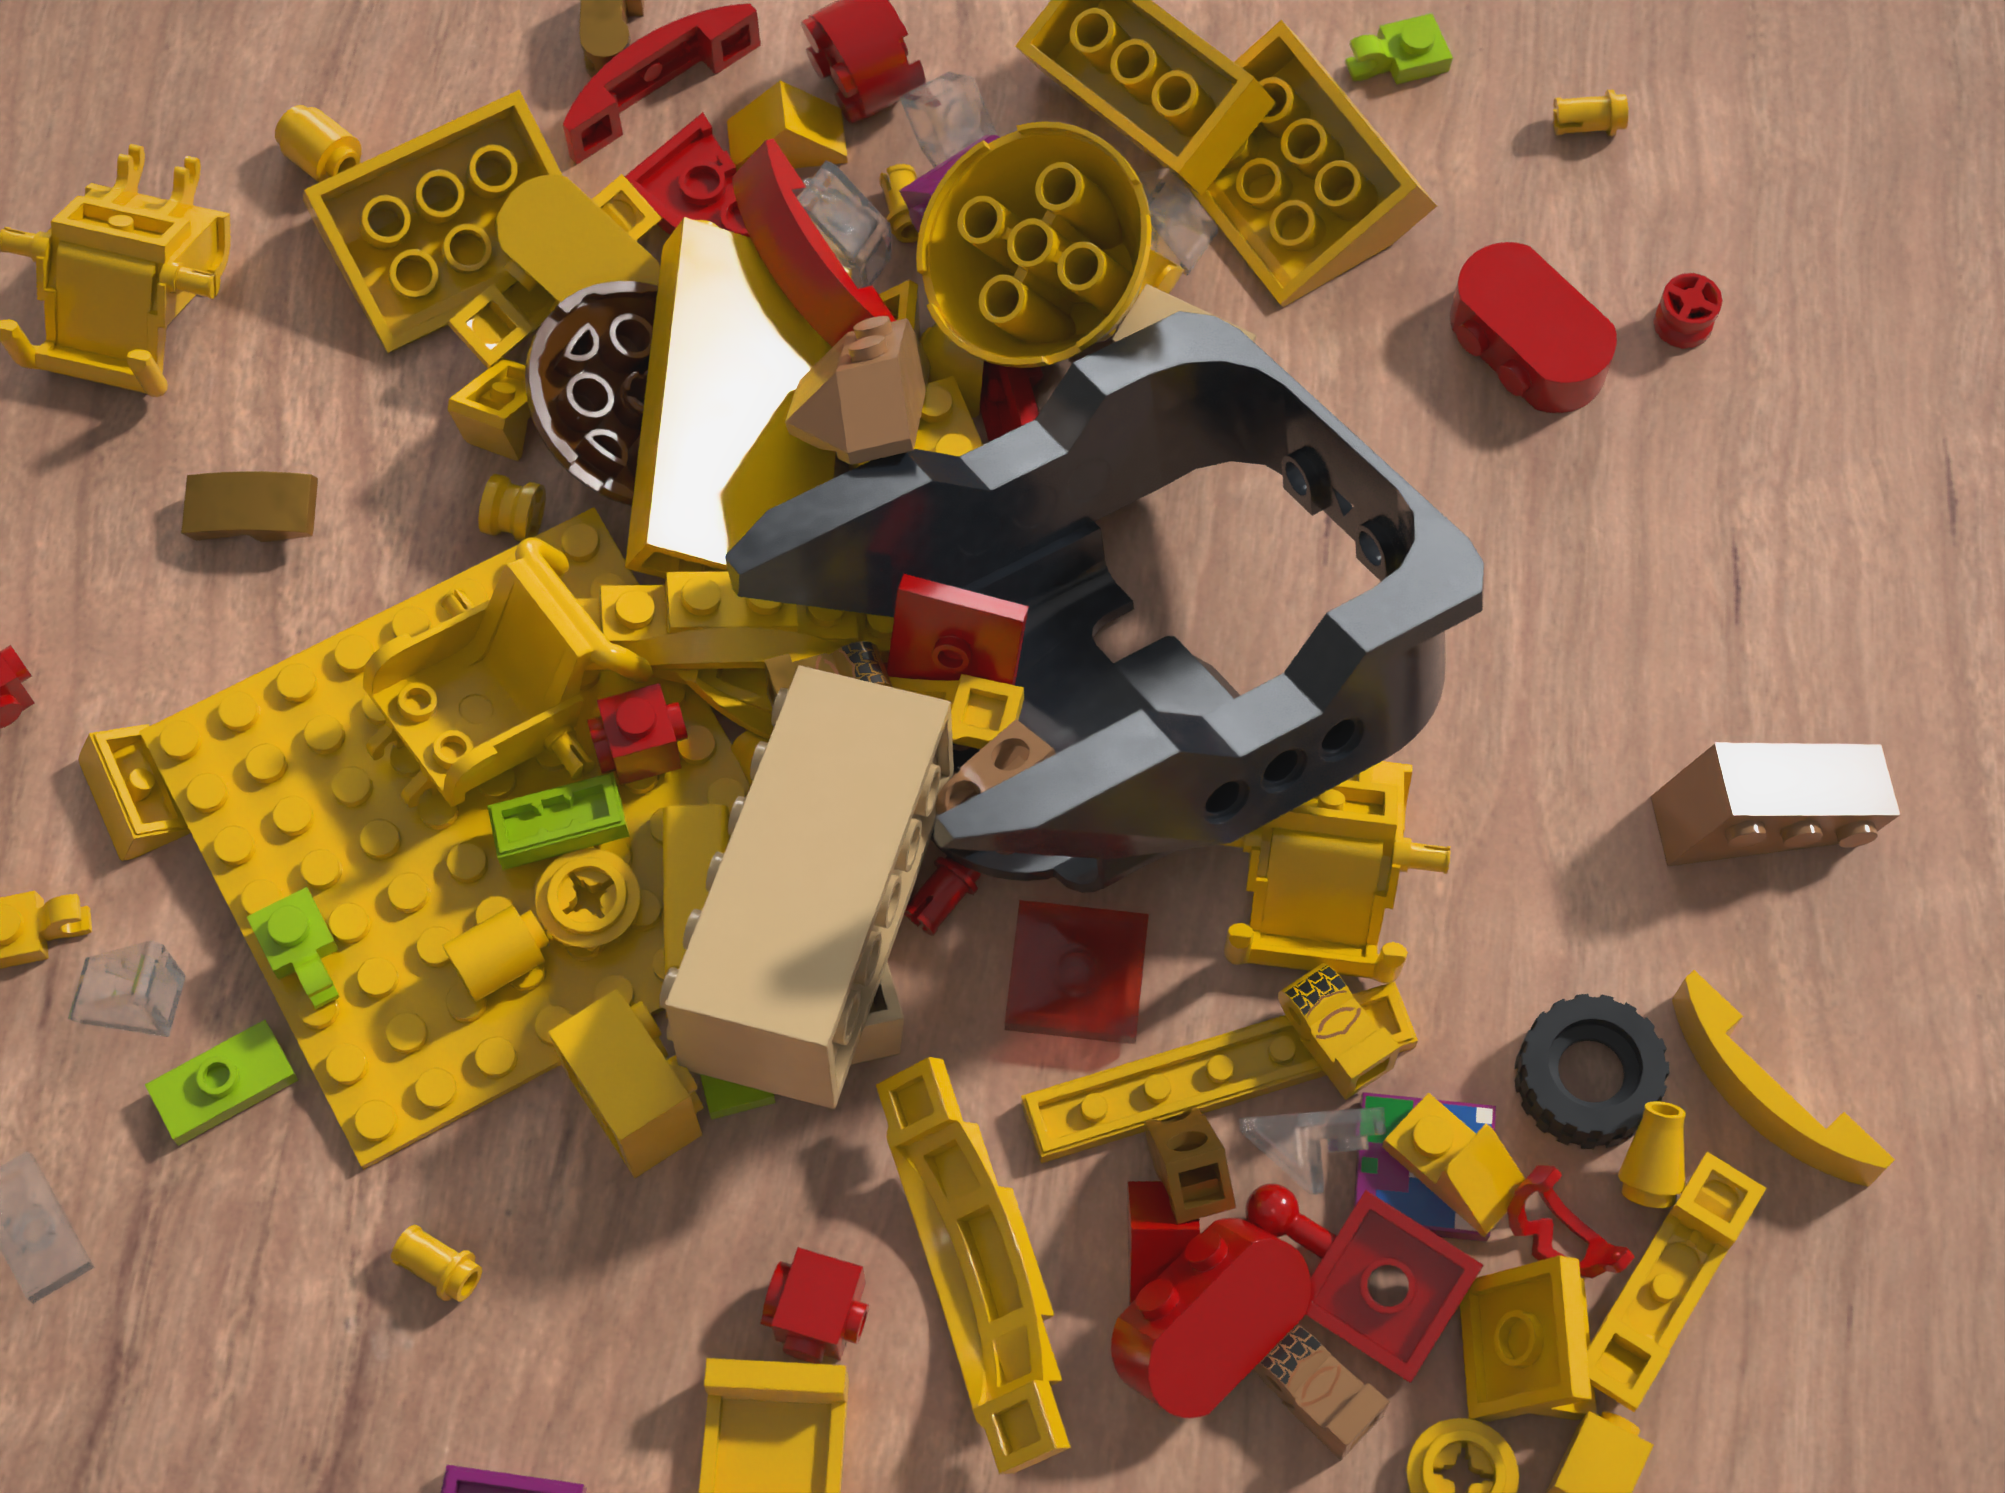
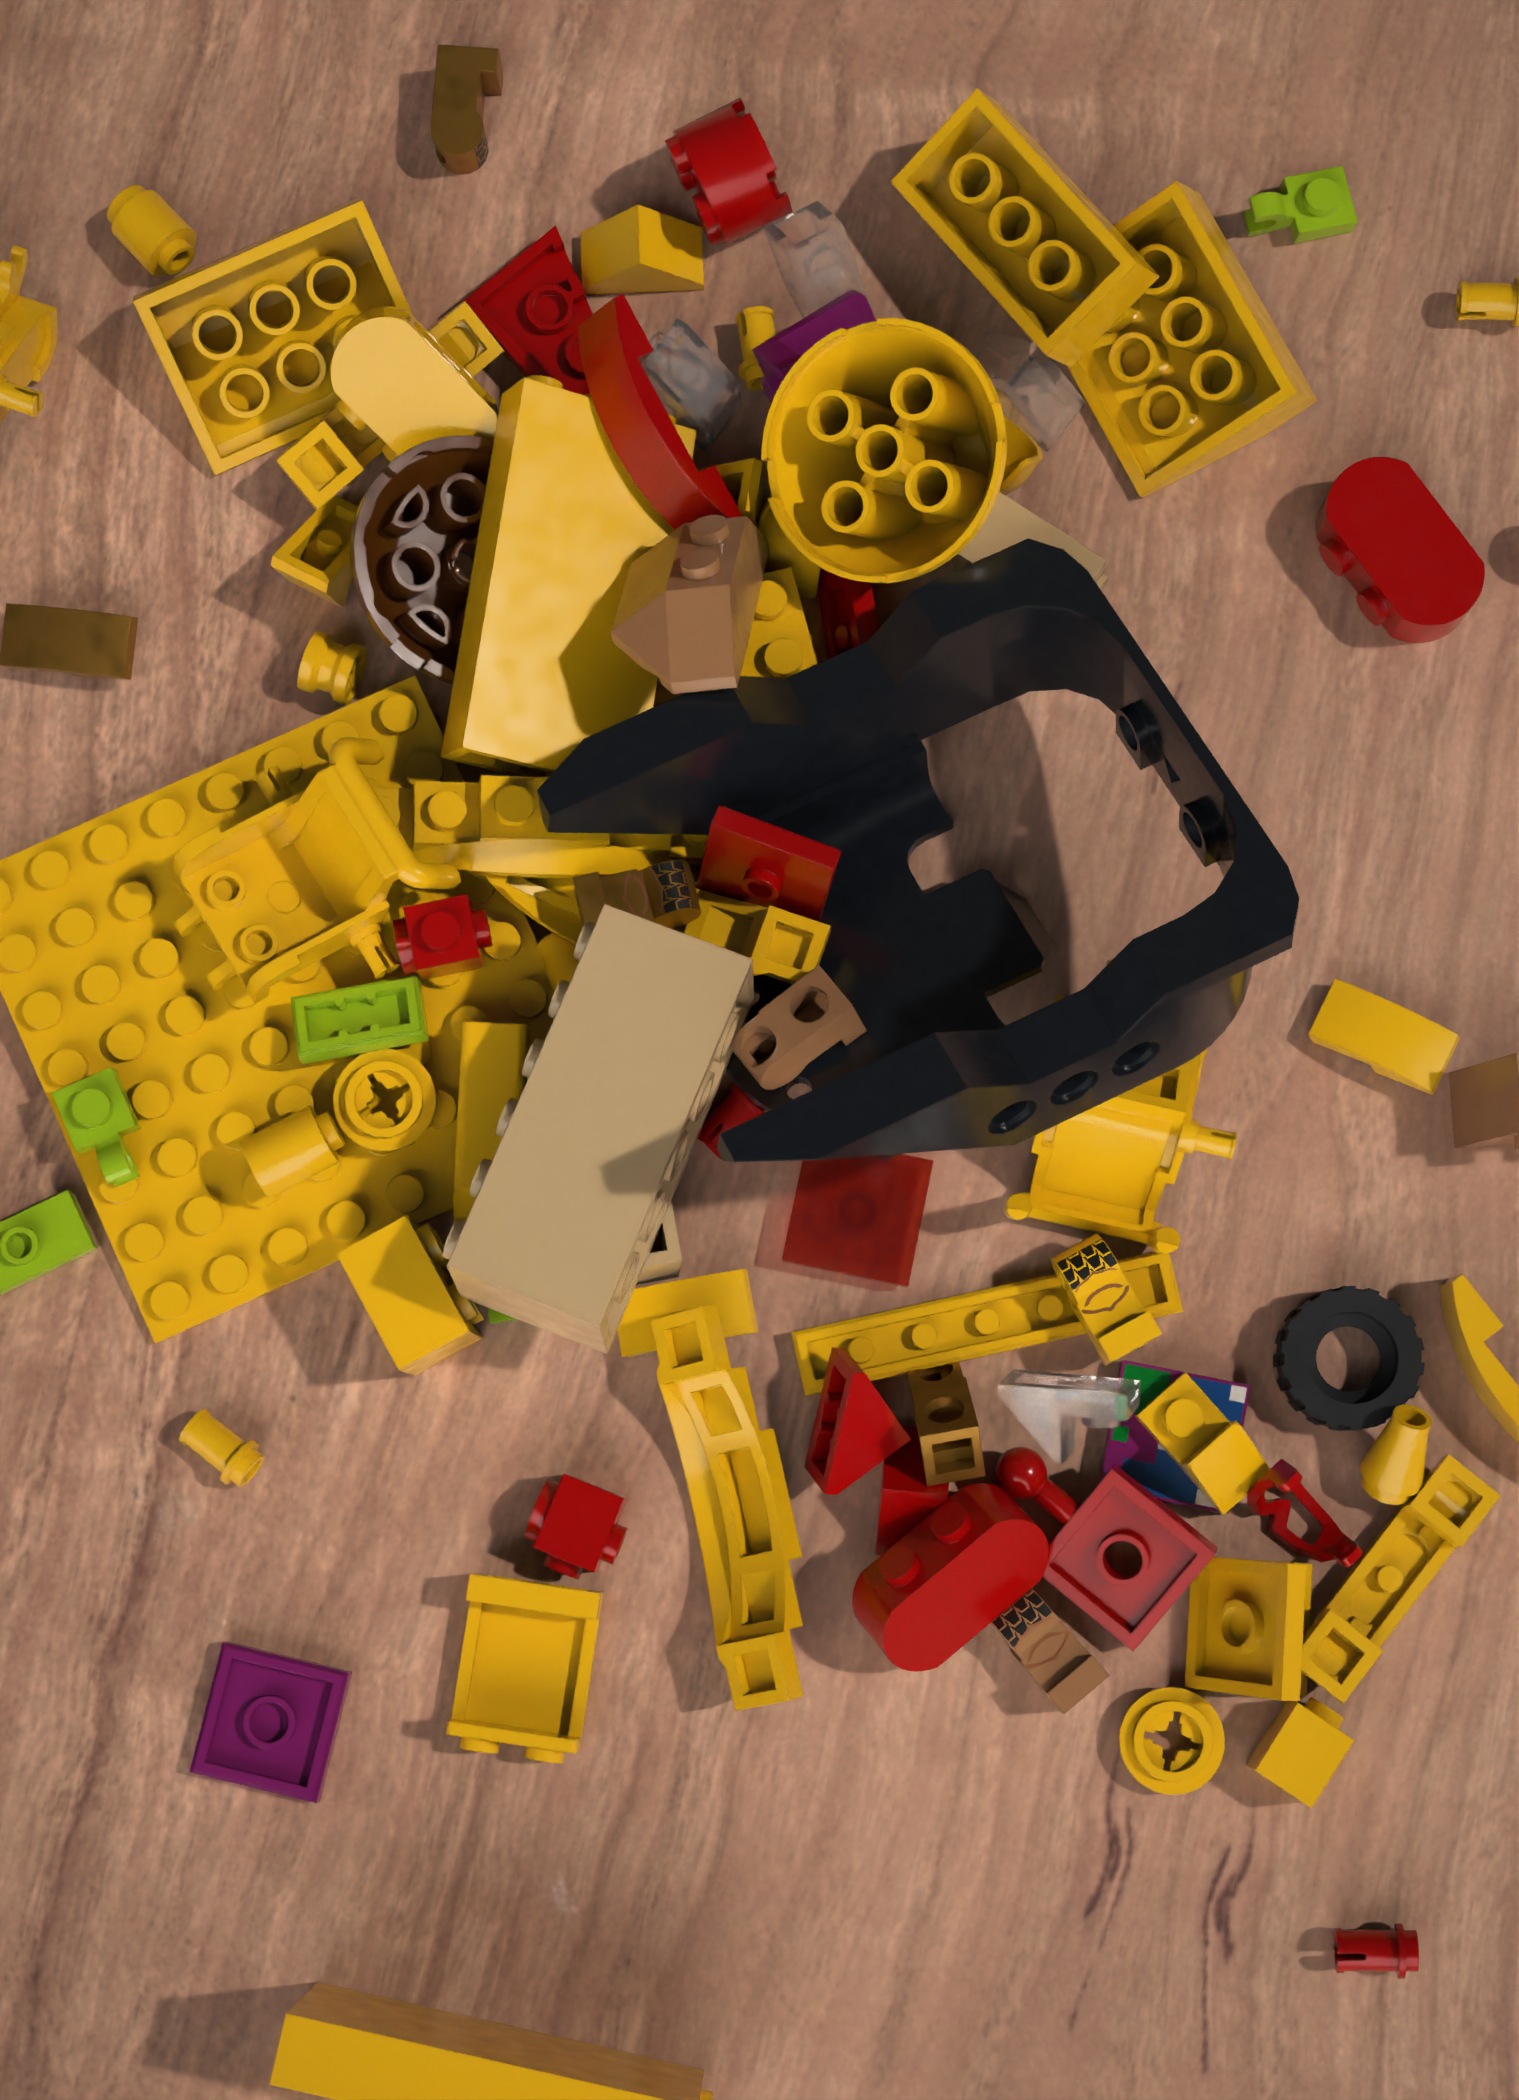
camera: 10 degrees right, 15 degrees up
(711, 36) = (574, 133): red slope -> none
(859, 1094) = (726, 1289): none -> yellow slope
(1093, 1175) = (851, 1427): none -> red slope
(1582, 759) = (1384, 1035): none -> yellow slope

